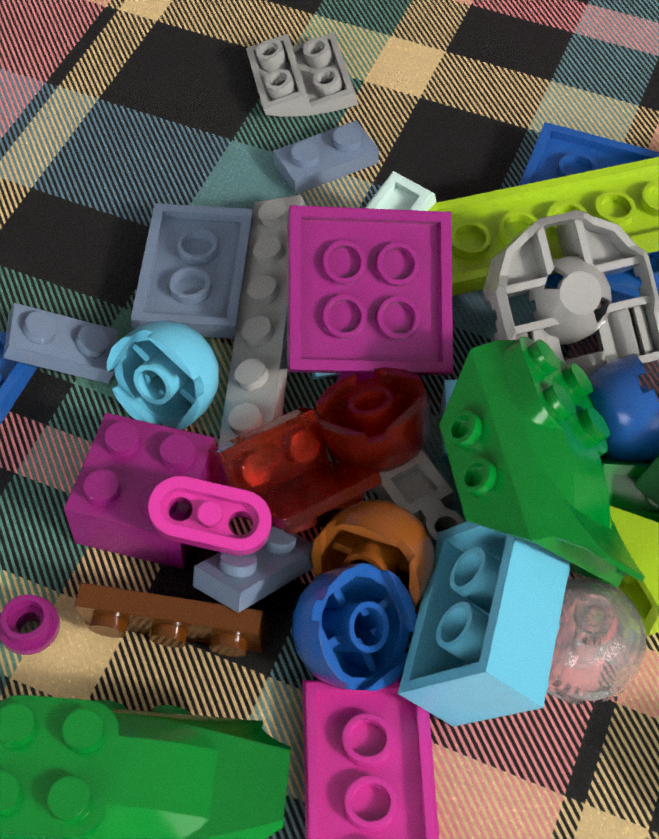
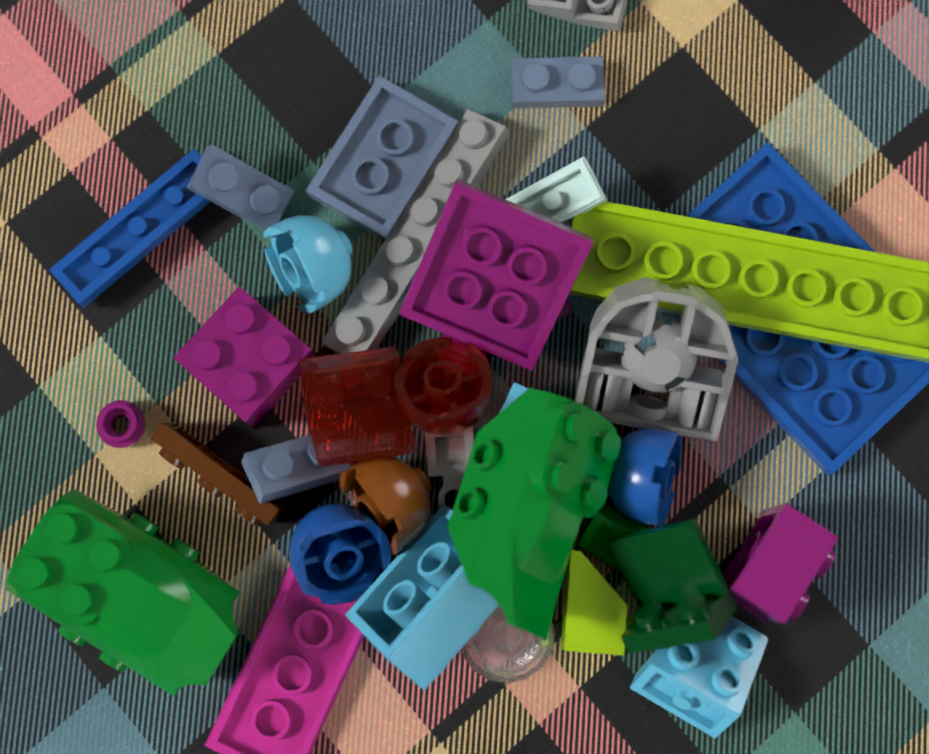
camera: 25 degrees right, 25 degrees up
(212, 512) = (267, 429): dark pink plate -> none

